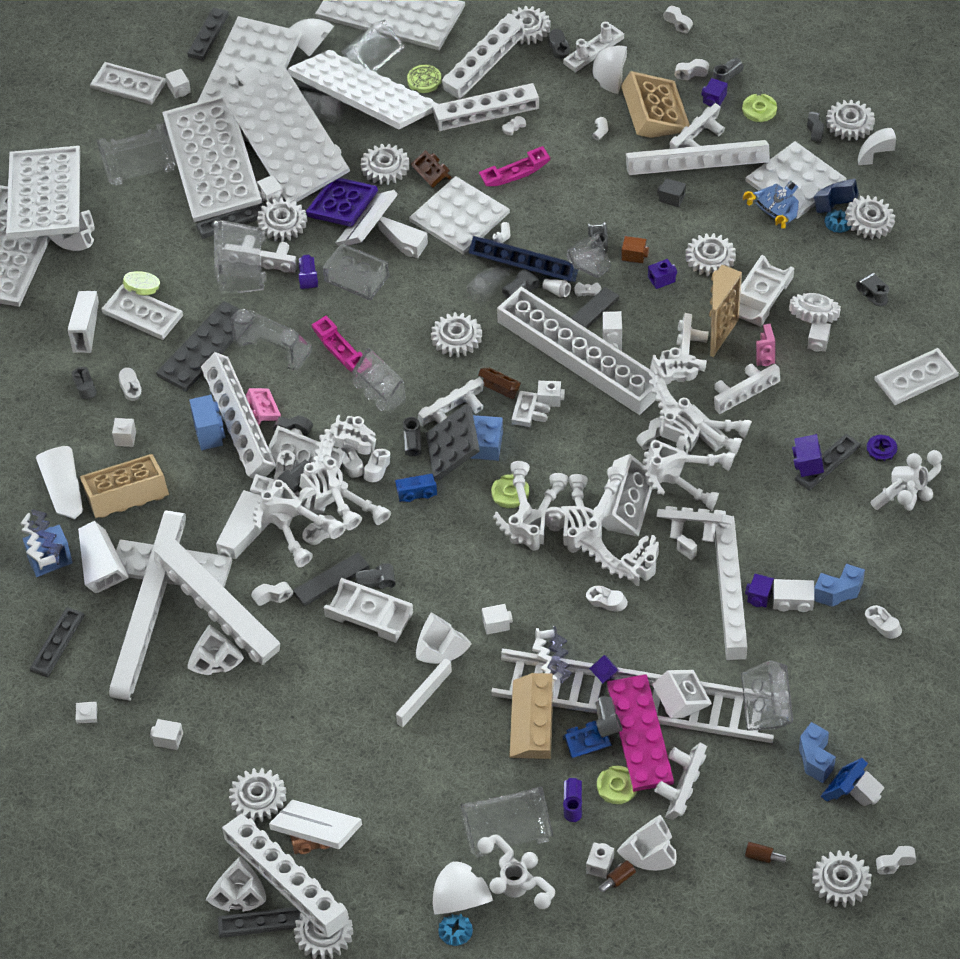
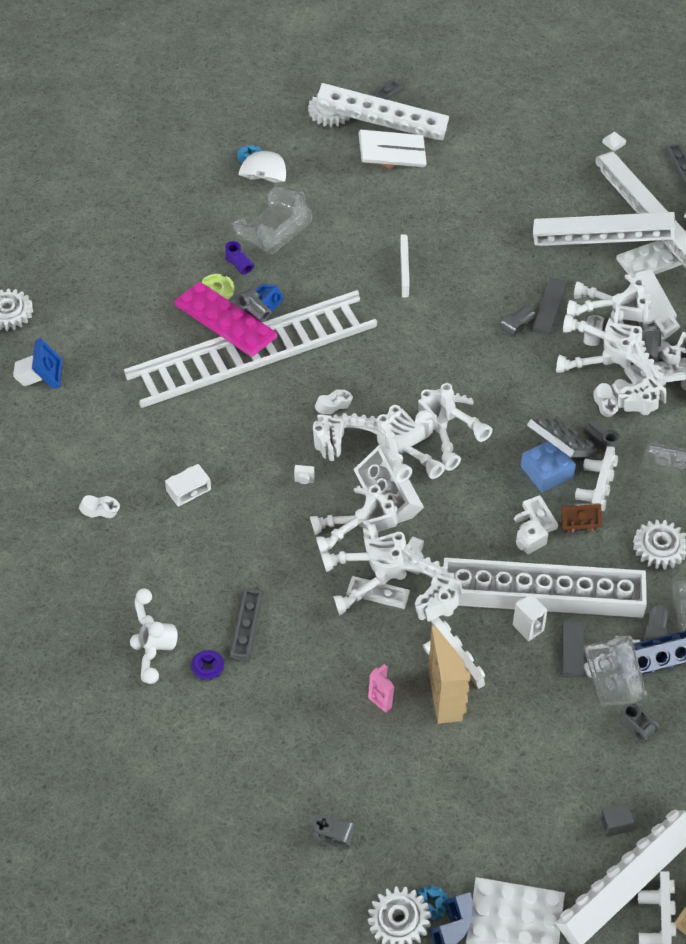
camera: 140 degrees right, 0 degrees up
(166, 734) = (546, 152): white brick -> none
(214, 653) = (571, 206): white brick -> none
(237, 888) = (408, 95): white brick -> none
(271, 797) = (450, 152): white gear -> none
(277, 593) = (578, 269): white piece -> none
(369, 609) = (497, 292): white piece -> none
(416, 487) = (558, 402): blue bracket -> none
(440, 641) = (426, 303): white brick -> none
(496, 619) = (401, 340): white brick -> none
(506, 496) = (488, 449): yellowish green tile -> none
(511, 867) = (234, 187): white wheel -> none
(532, 716) = (309, 286): tan slope -> none
(557, 641) = (331, 330): piece -> none
(600, 860) = (187, 233): white brick -> none
(604, 669) = (285, 338): dark purple brick -> none
(618, 876) = (167, 234): reddish brown piece -> none
(634, 249) = (592, 728): dark orange brick -> none
(650, 846) = (160, 258): white brick -> none
(662, 273) = (544, 718): dark purple brick -> none
(681, 693) = (214, 356): white slope -> none
(686, 514) = (312, 485): white plate -> none
(689, 775) = (164, 304): white plate -> none
(710, 253) = (524, 782): white gear -> none
(730, 591) = (244, 461): white brick -> none
(739, 393) = (377, 631): white plate -> none
(759, 590) = (218, 472): dark purple brick -> none
(761, 290) = (438, 759): white piece -> none
(763, 853) = (76, 298): reddish brown piece -> none
(767, 696) = (146, 387): clear slope -> none
(776, 202) = (501, 867): medium blue torso -> none
(808, 455) = (262, 606): dark purple brick -> none
(814, 308) = (357, 764): white gear -> none
(816, 760) = (80, 371): medium blue brick -> none
(819, 336) = (345, 741): white brick -> none
(833, 590) = (155, 505): medium blue brick -> none
(887, 494) = (166, 612): white axle -> none
(916, 376) = (225, 762): white tile -> none

